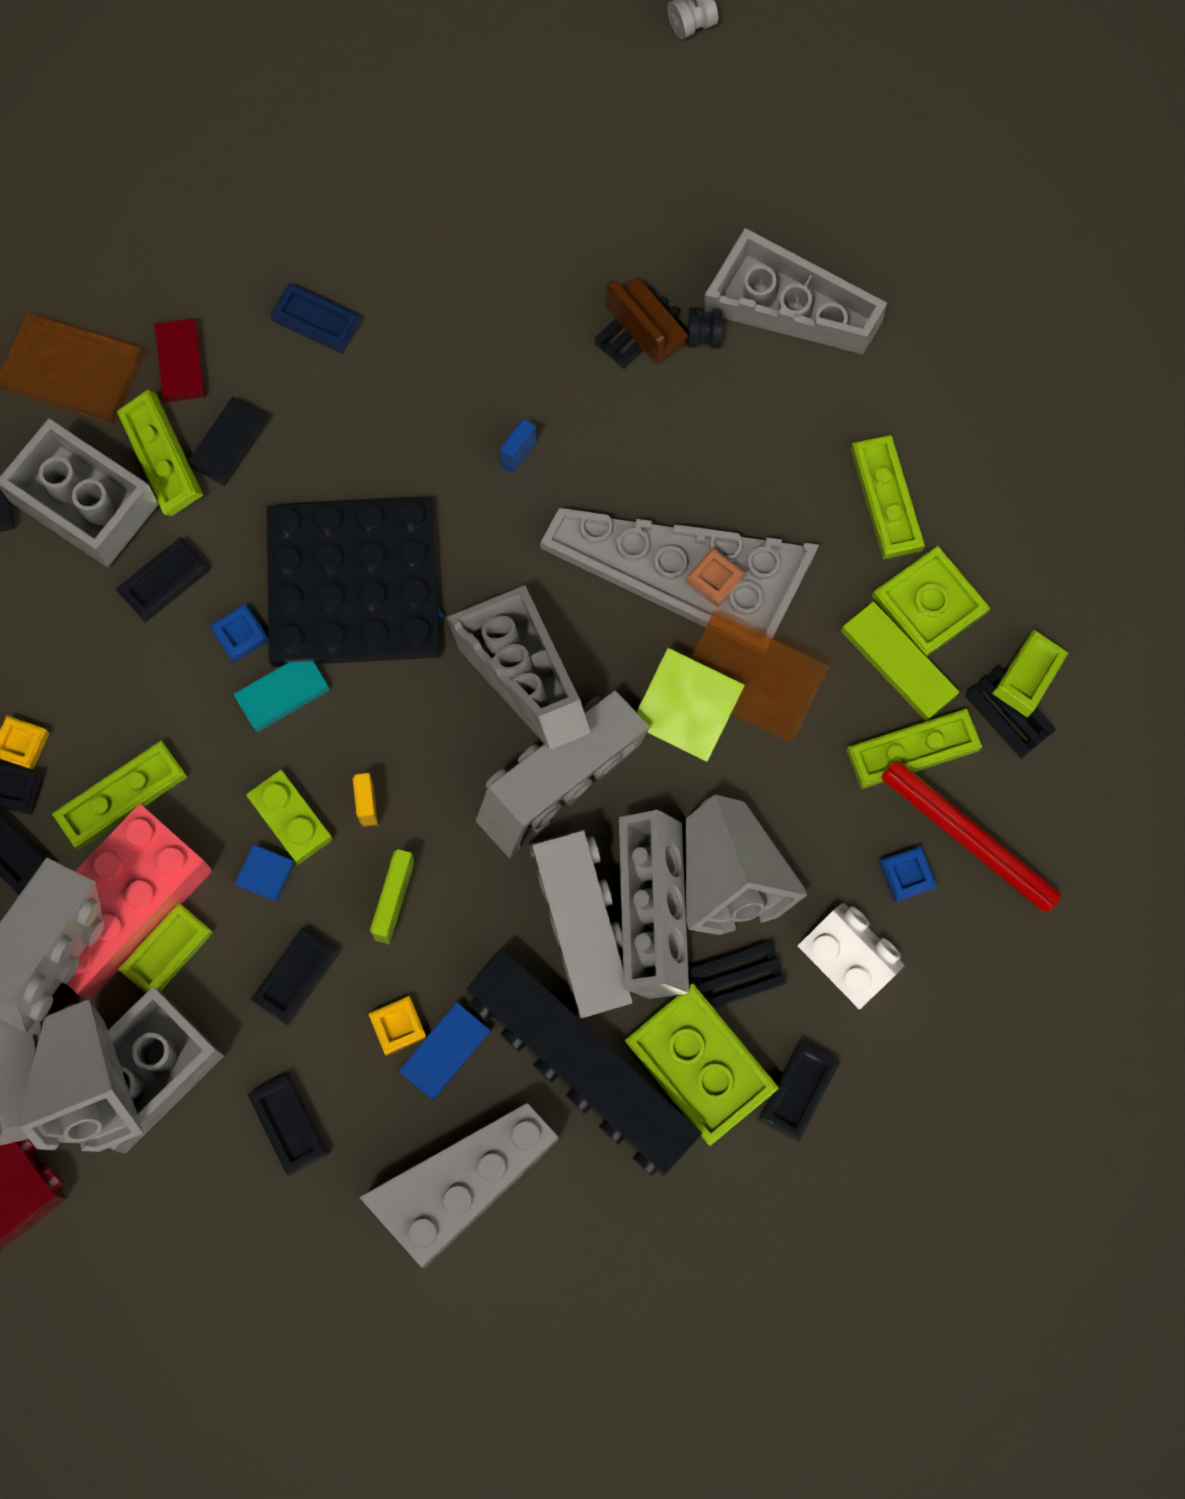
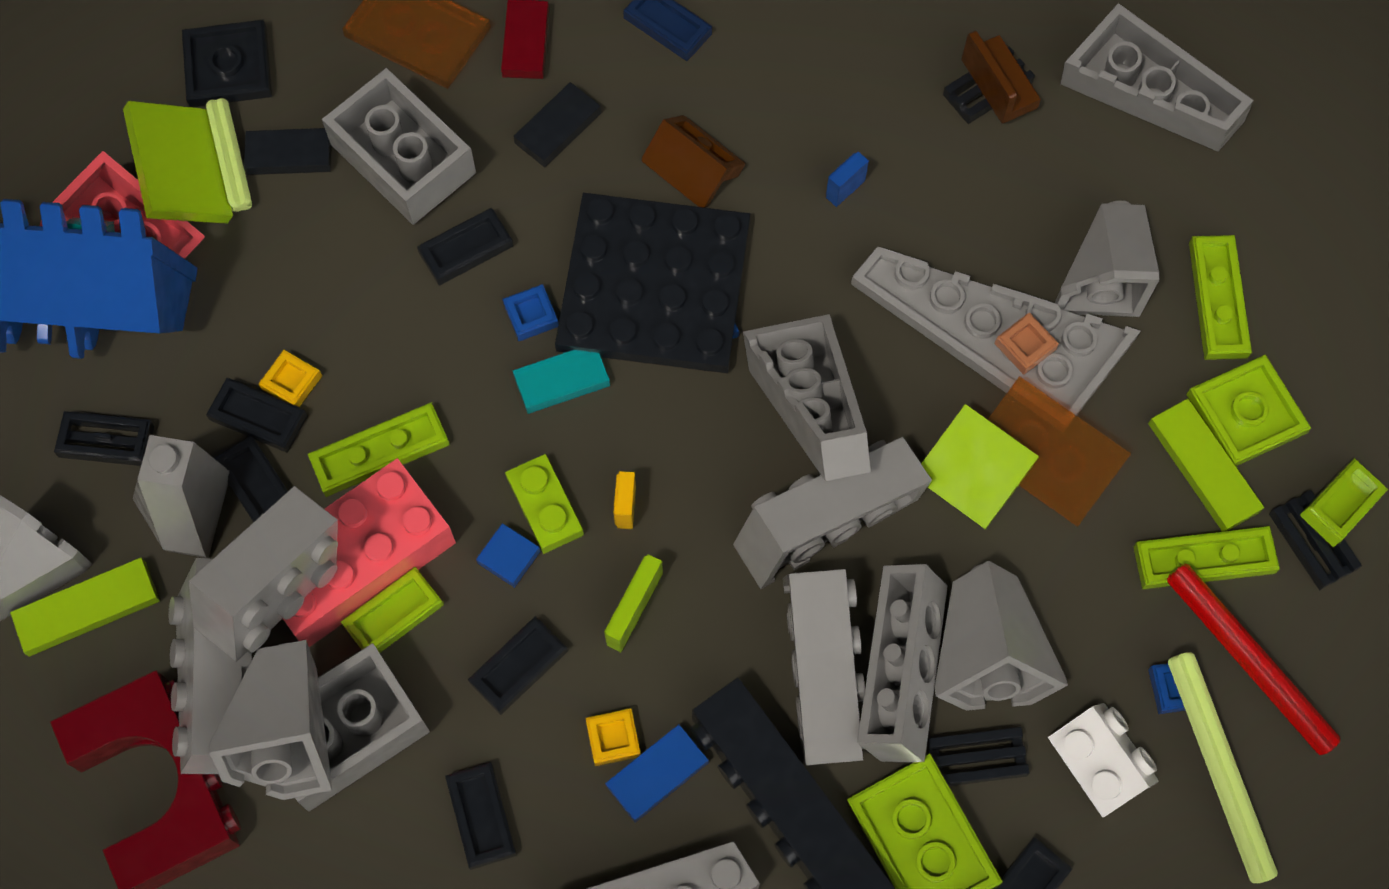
camera: 15 degrees right, 5 degrees down
(159, 453) = (487, 124): lime tile -> none
(365, 453) = (691, 159): none -> reddish brown panel
(704, 328) = (1058, 96): black wheel -> none
(783, 485) = (1113, 266): none -> light grey slope
(959, 942) = (1222, 768): none -> yellowish green axle

